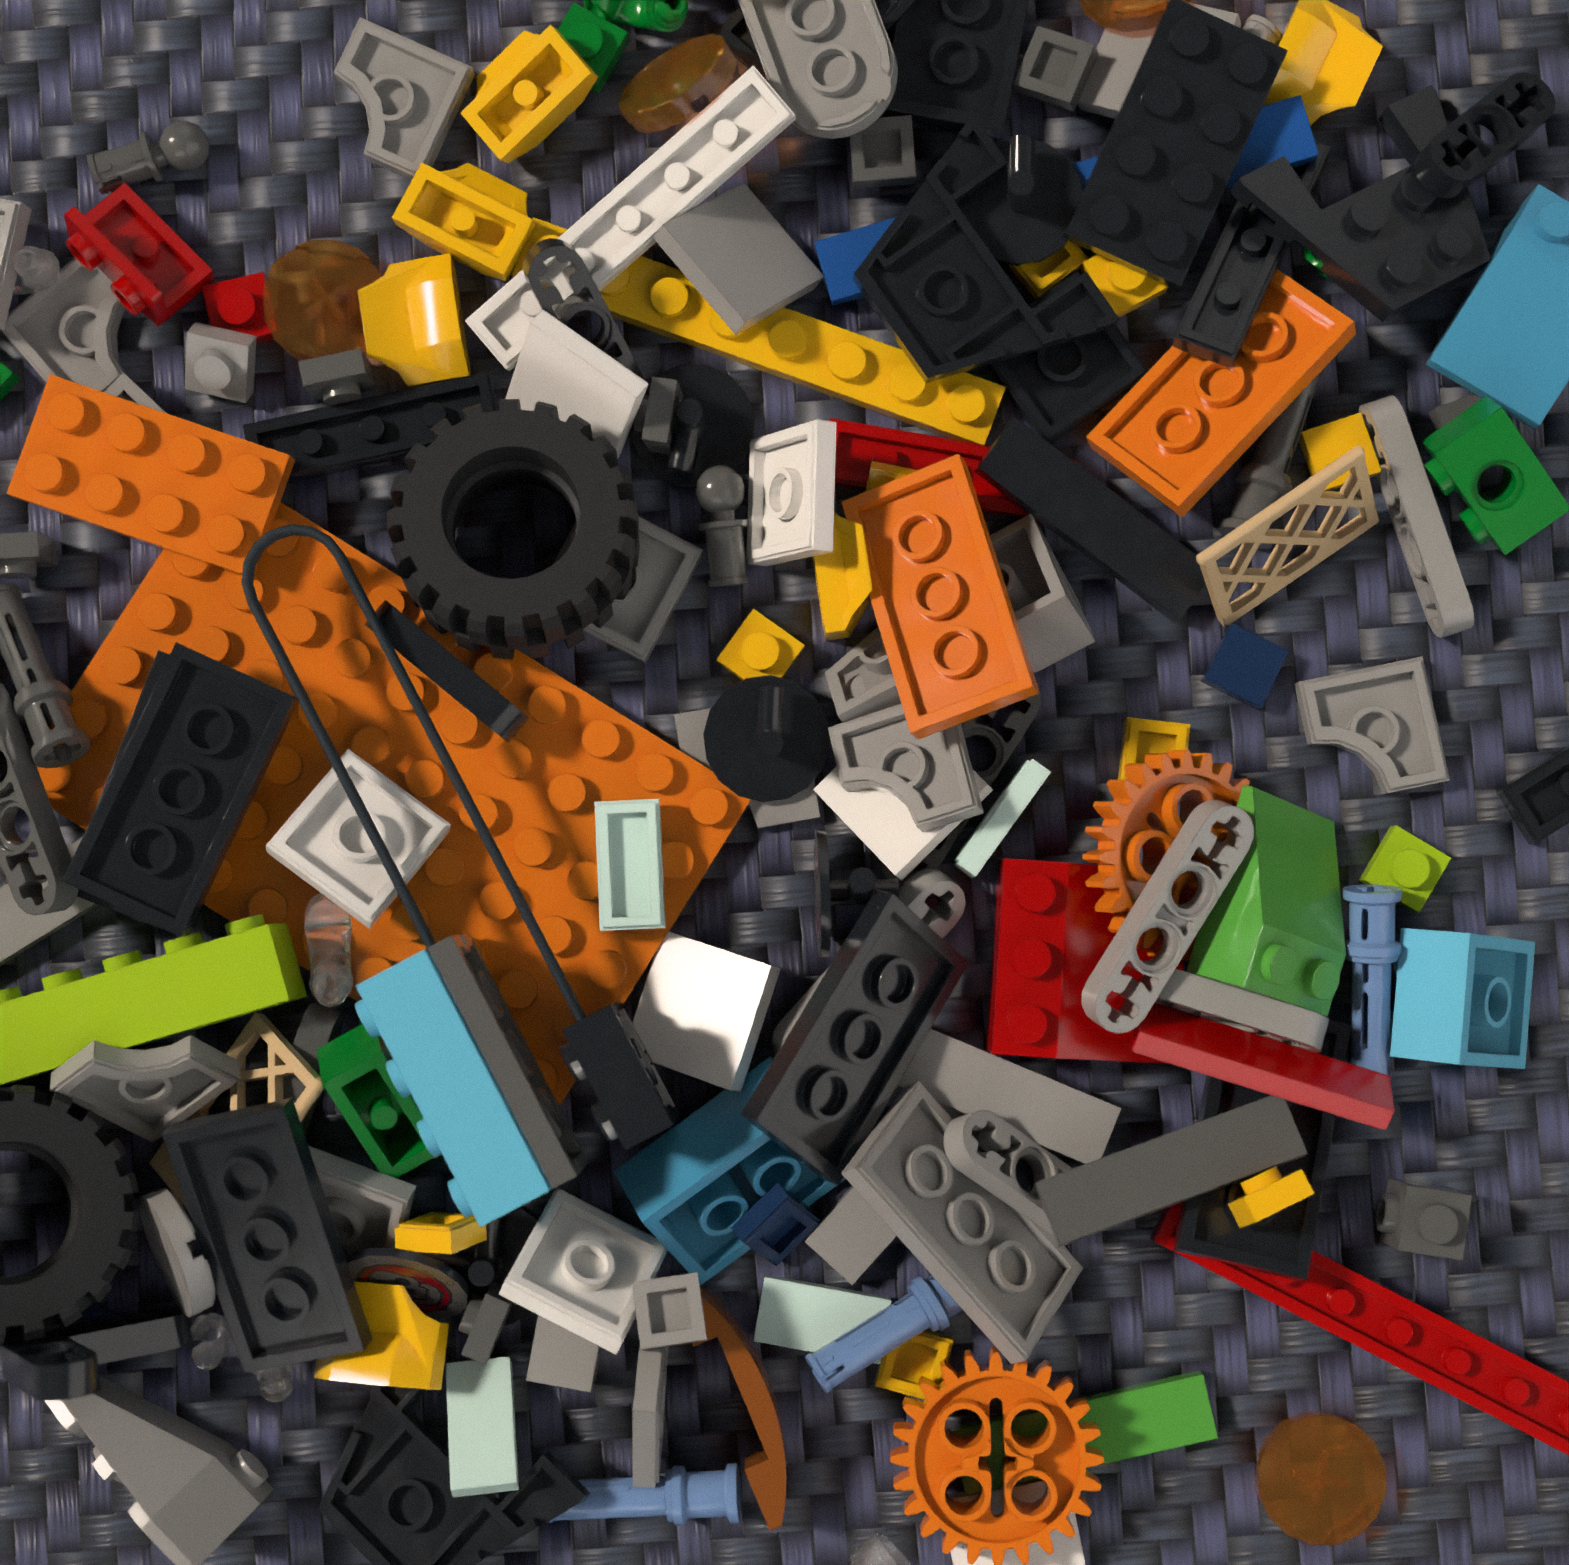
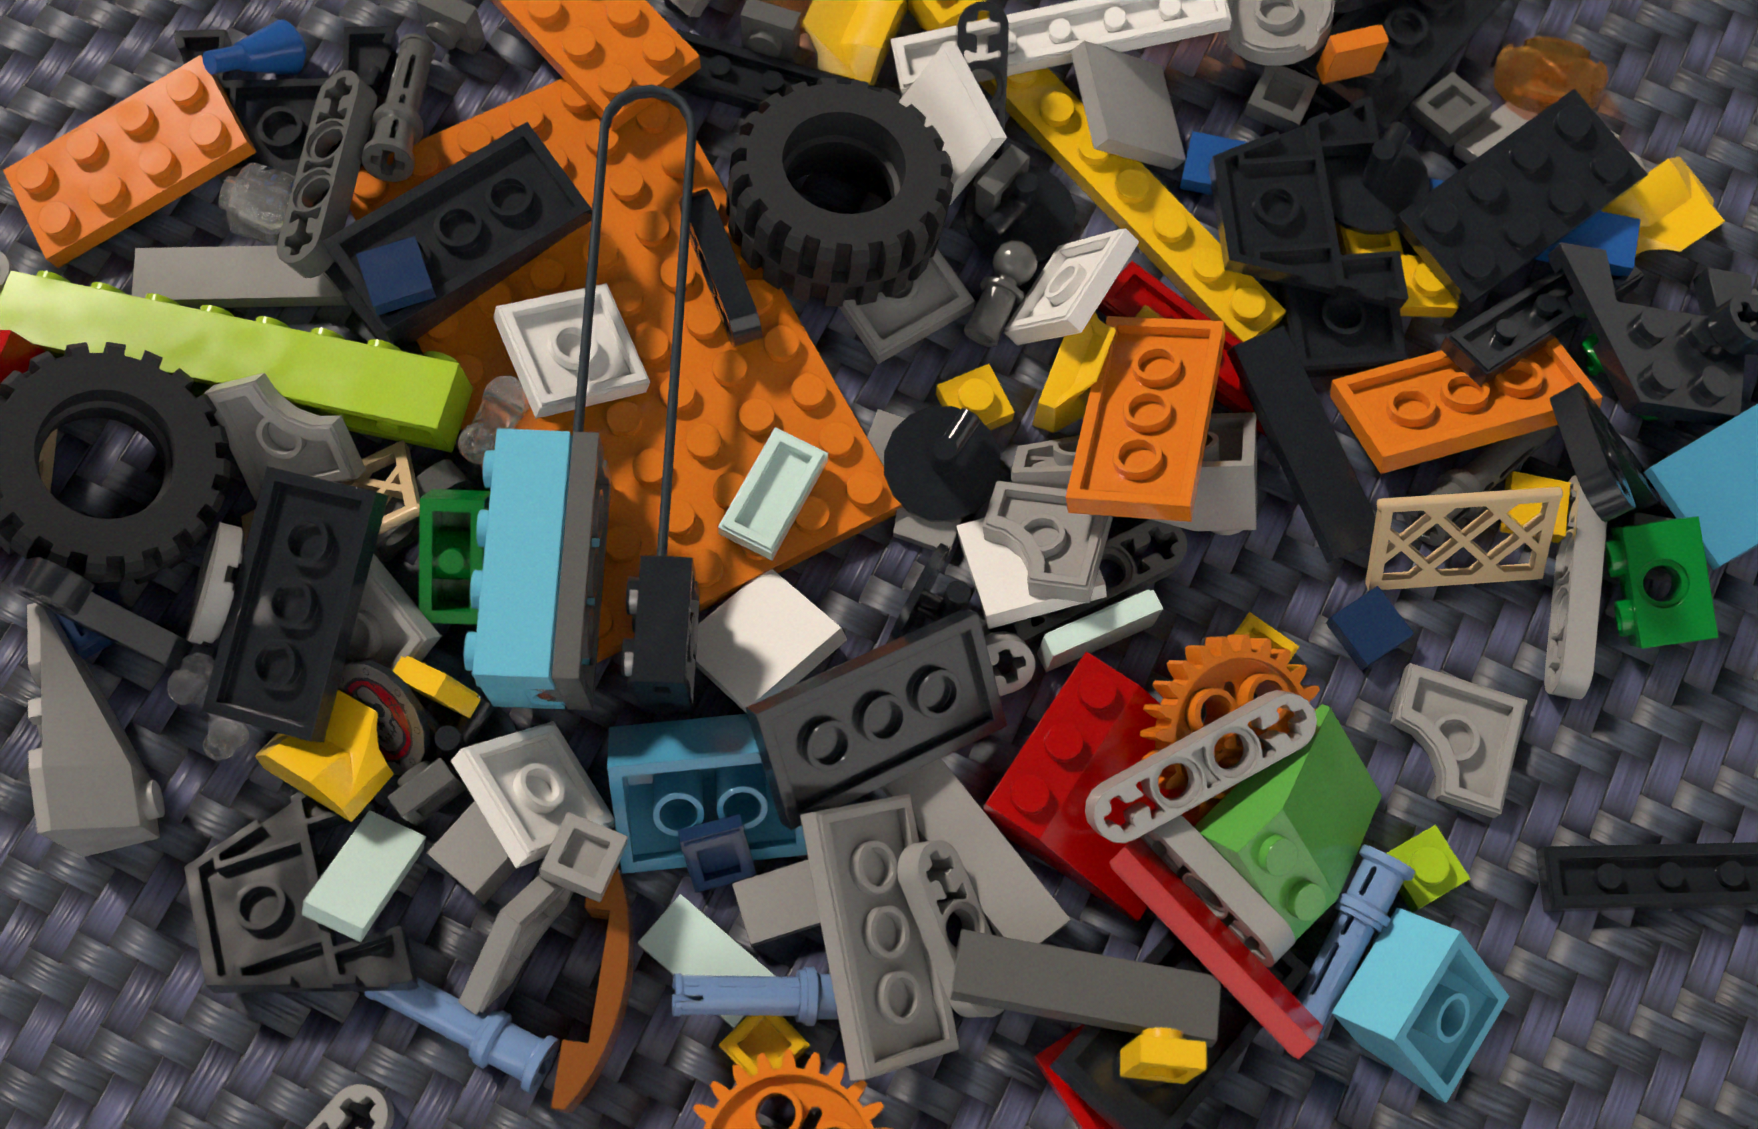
camera: 20 degrees right, 15 degrees down
(157, 879) = (395, 275): none -> dark blue tile
(931, 75) = (1352, 54): none -> orange tile
(1378, 393) = (1600, 457): none -> black beam

